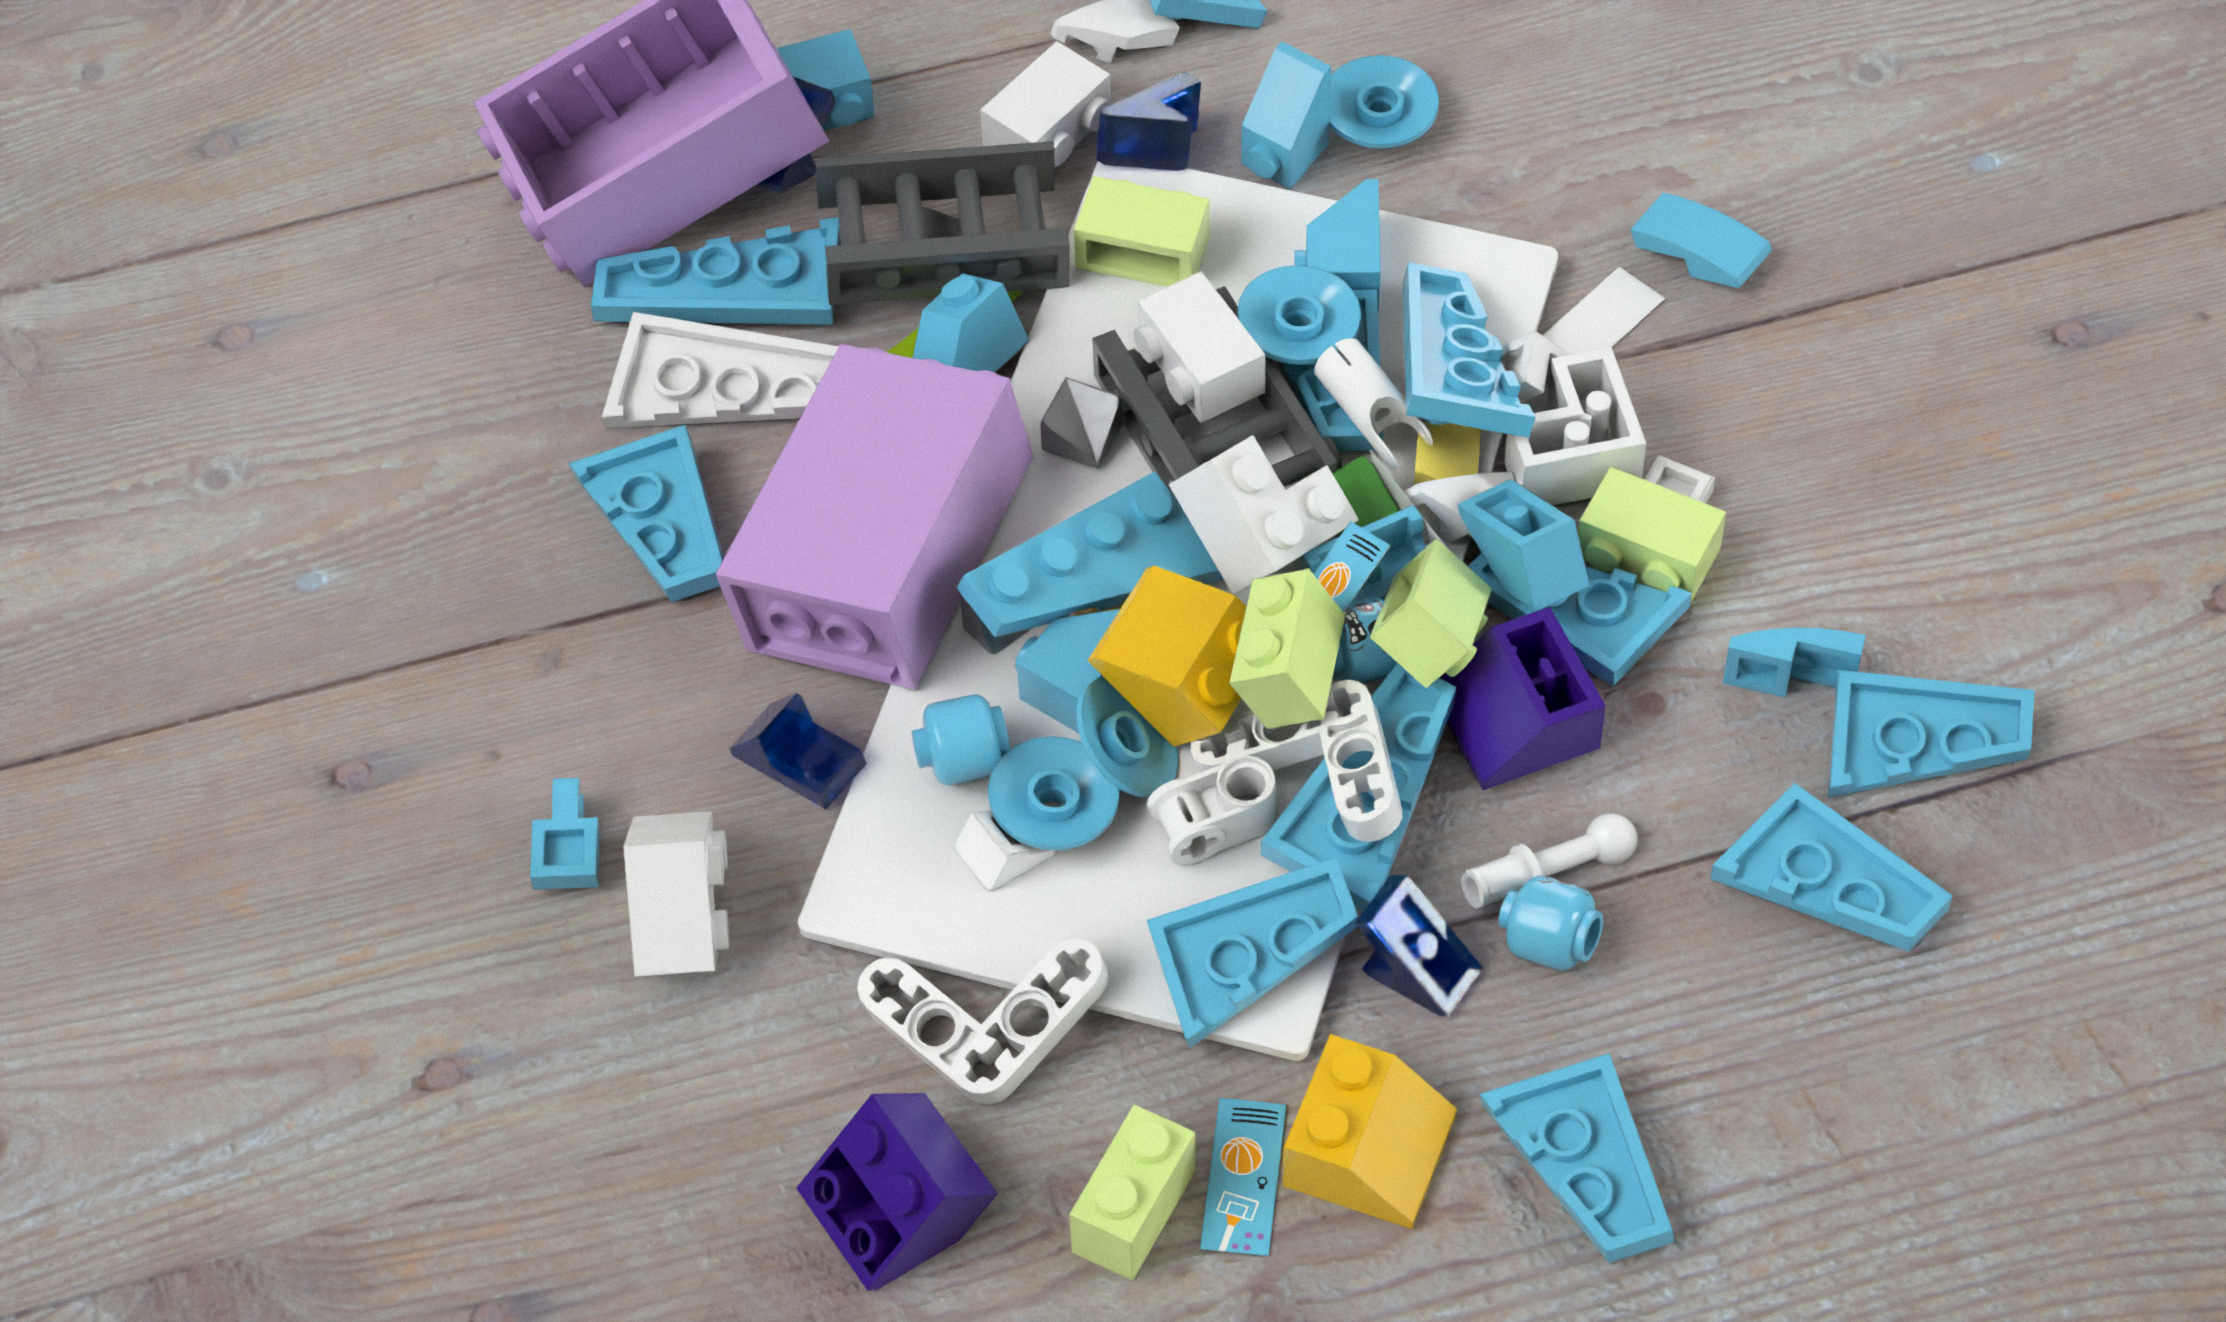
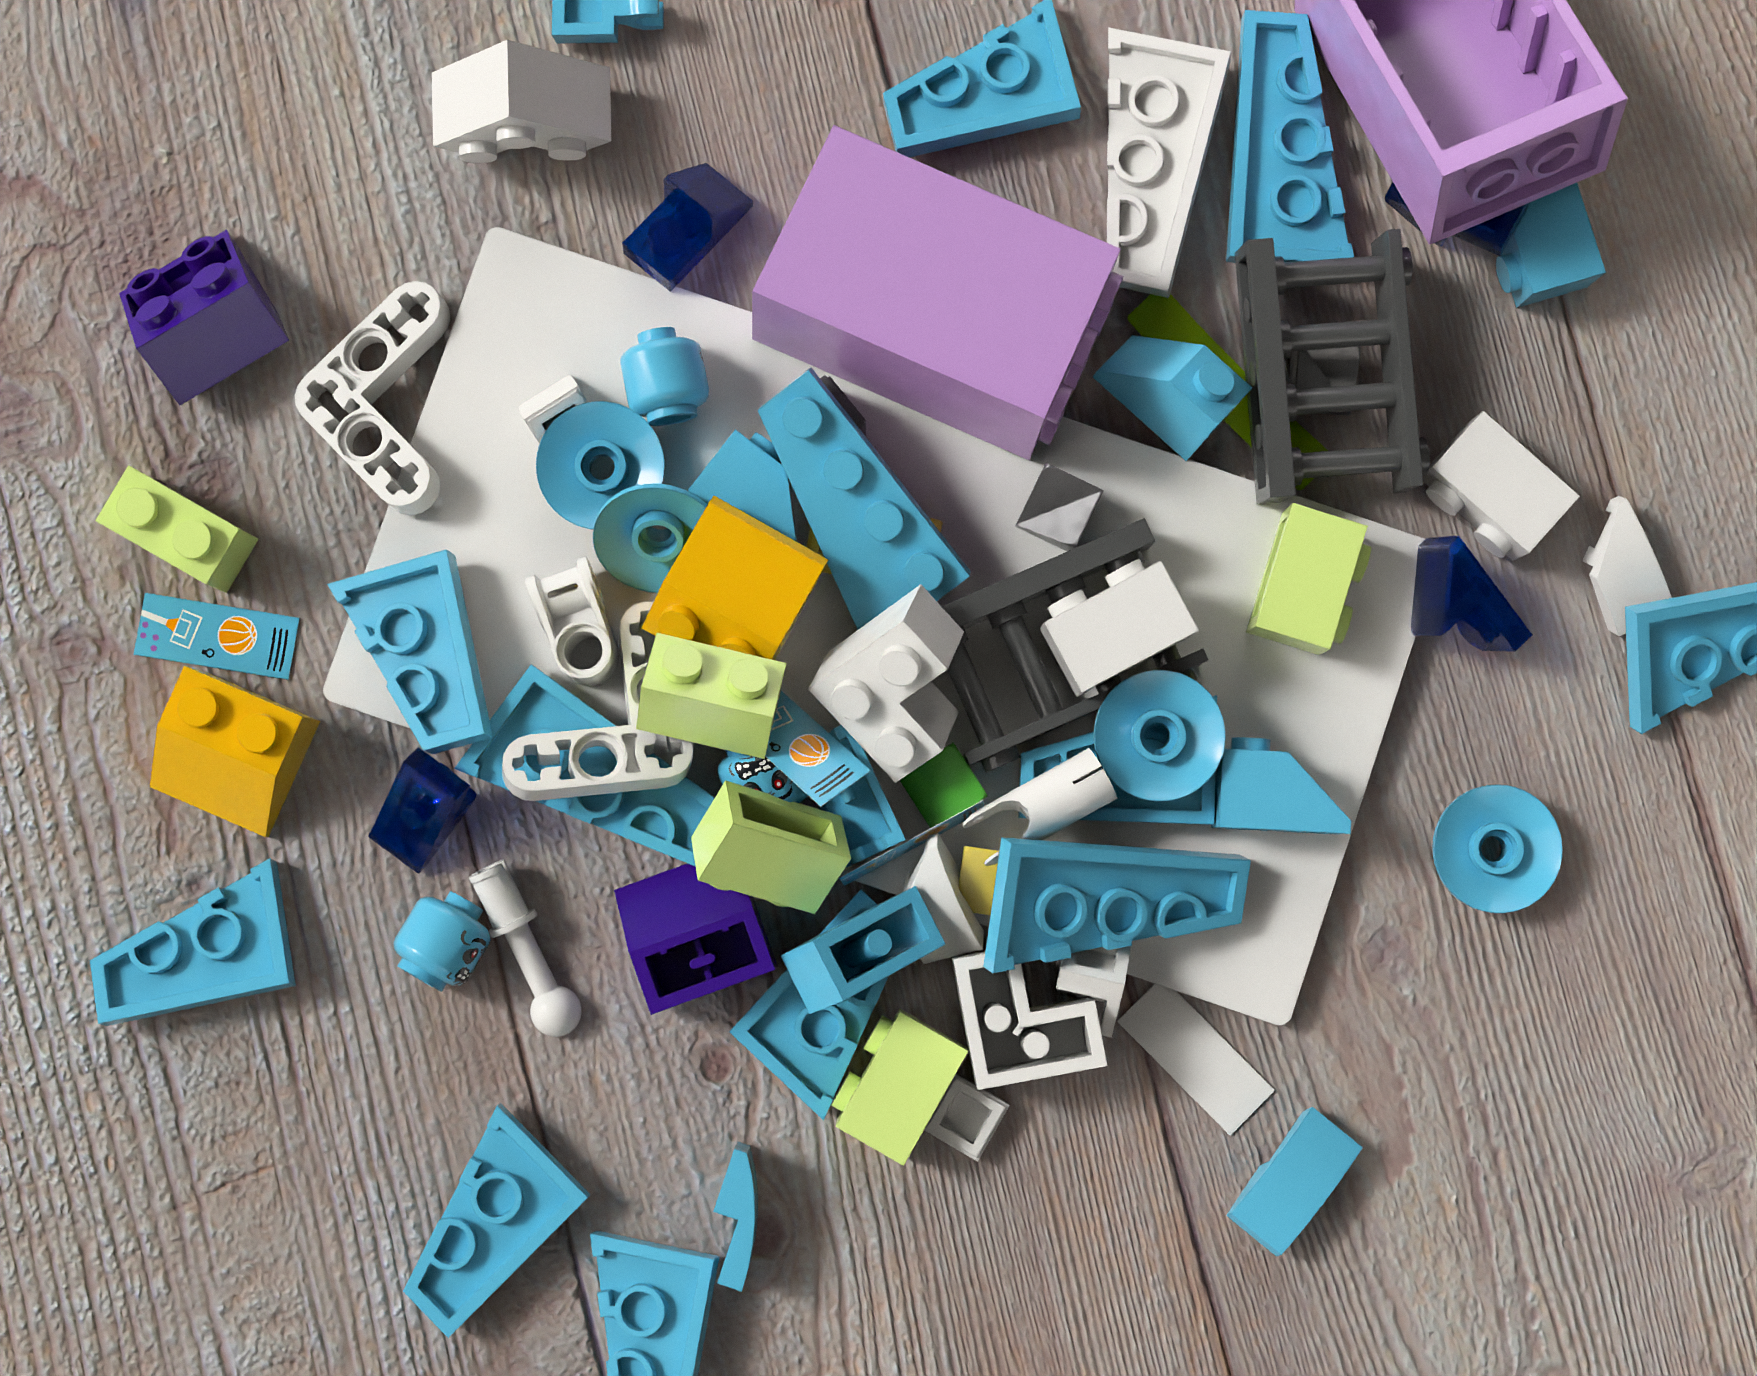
camera: 90 degrees right, 30 degrees up
(1287, 117) = (1461, 742): medium azure slope -> none

